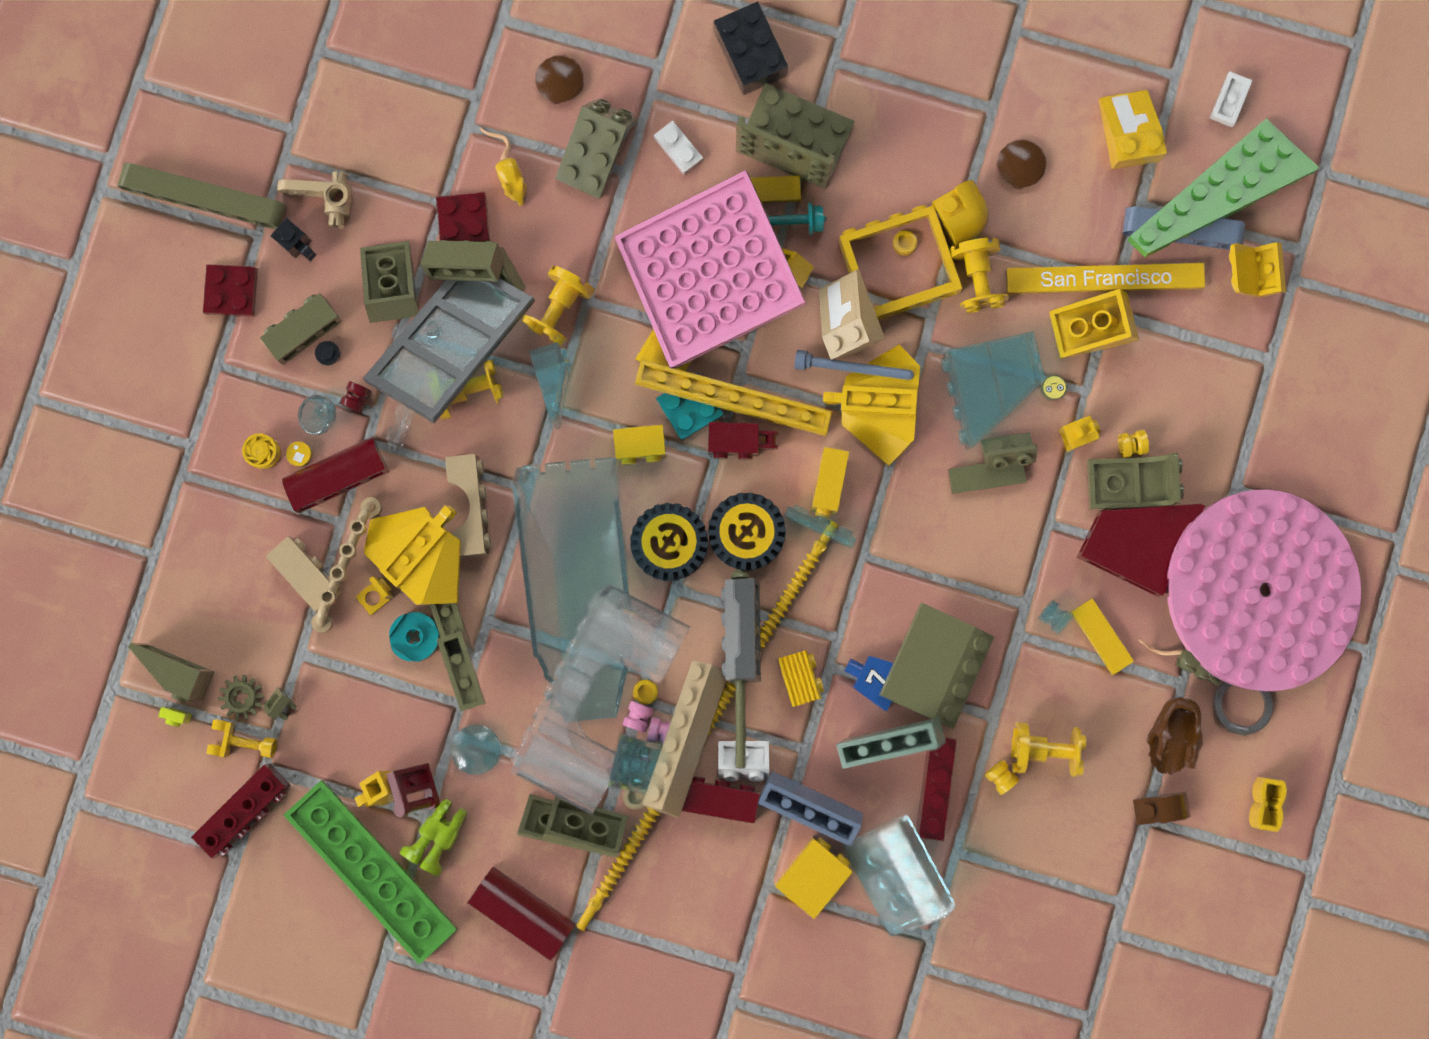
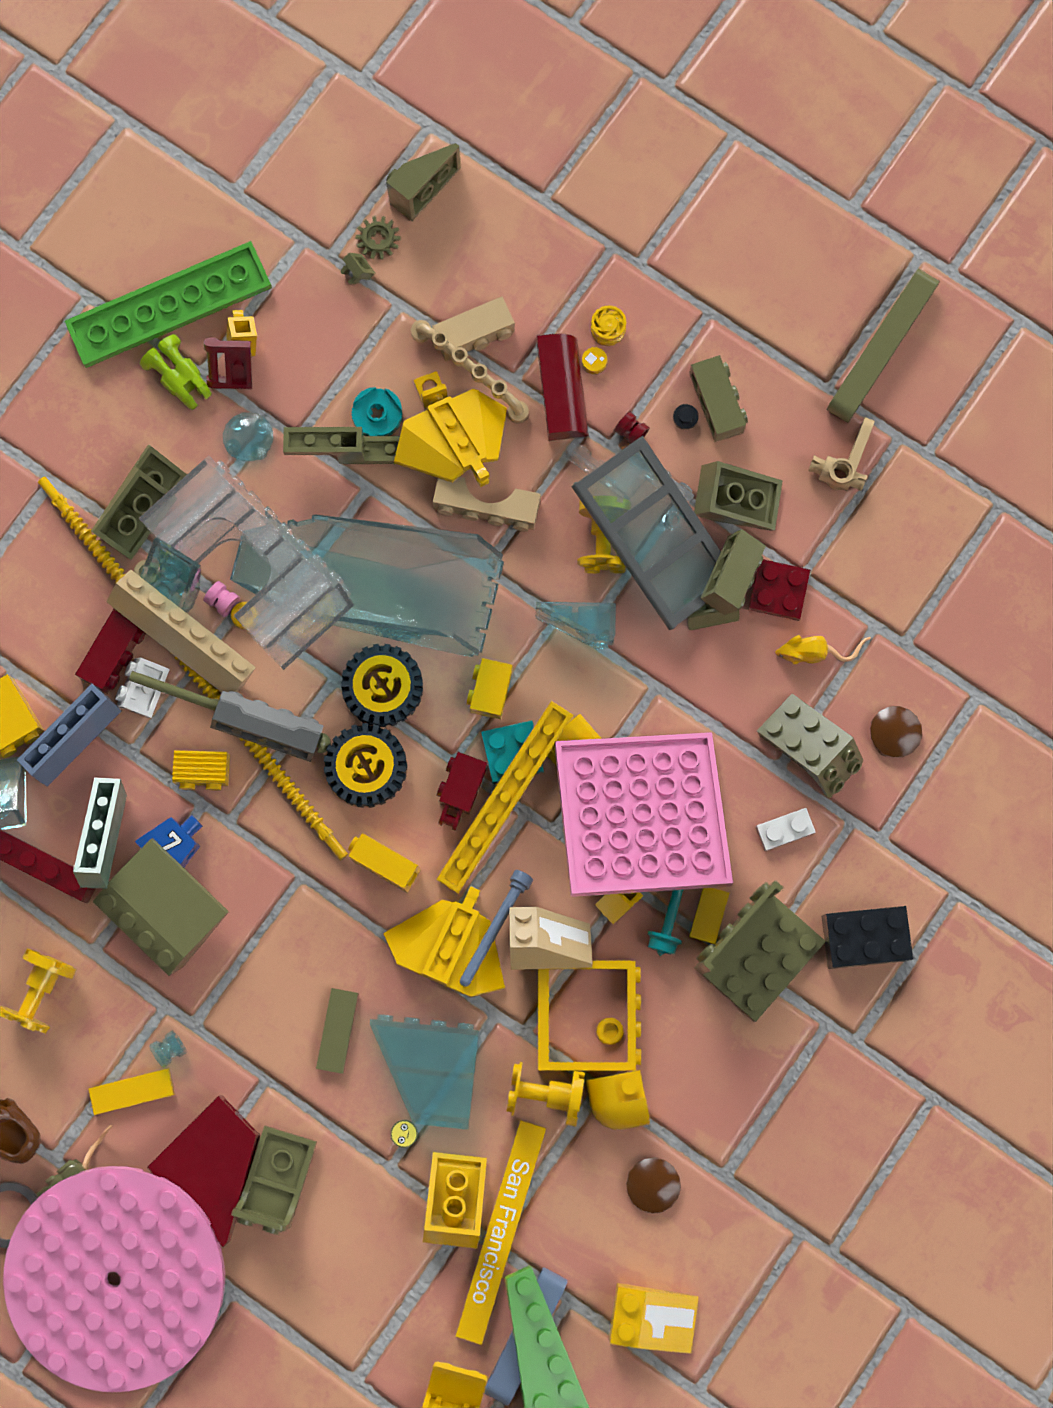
camera: 105 degrees right, 5 degrees down
(174, 716) = (379, 171): neon yellow plate -> none
(230, 290) = (779, 344): dark red plate -> none
(240, 811) = (269, 204): dark red brick -> none
(266, 747) = (321, 246): yellow bar -> none
(293, 240) = (809, 417): black brick -> none
(317, 415) = (625, 387): clear light blue piece -> none
(521, 913) = (76, 429): dark red brick -> none
(563, 297) = (663, 659): yellow piece -> none
(657, 730) = (201, 612): bright pink wheel -> none
(820, 525) = (362, 823): clear light blue plate -> none
(1002, 777) = (29, 936): yellow wheel -> none
(1009, 451) = (353, 1061): olive bracket -> none
(1080, 433) = (346, 1143): yellow brick -> none
(1133, 443) = (316, 1196): yellow wheel -> none

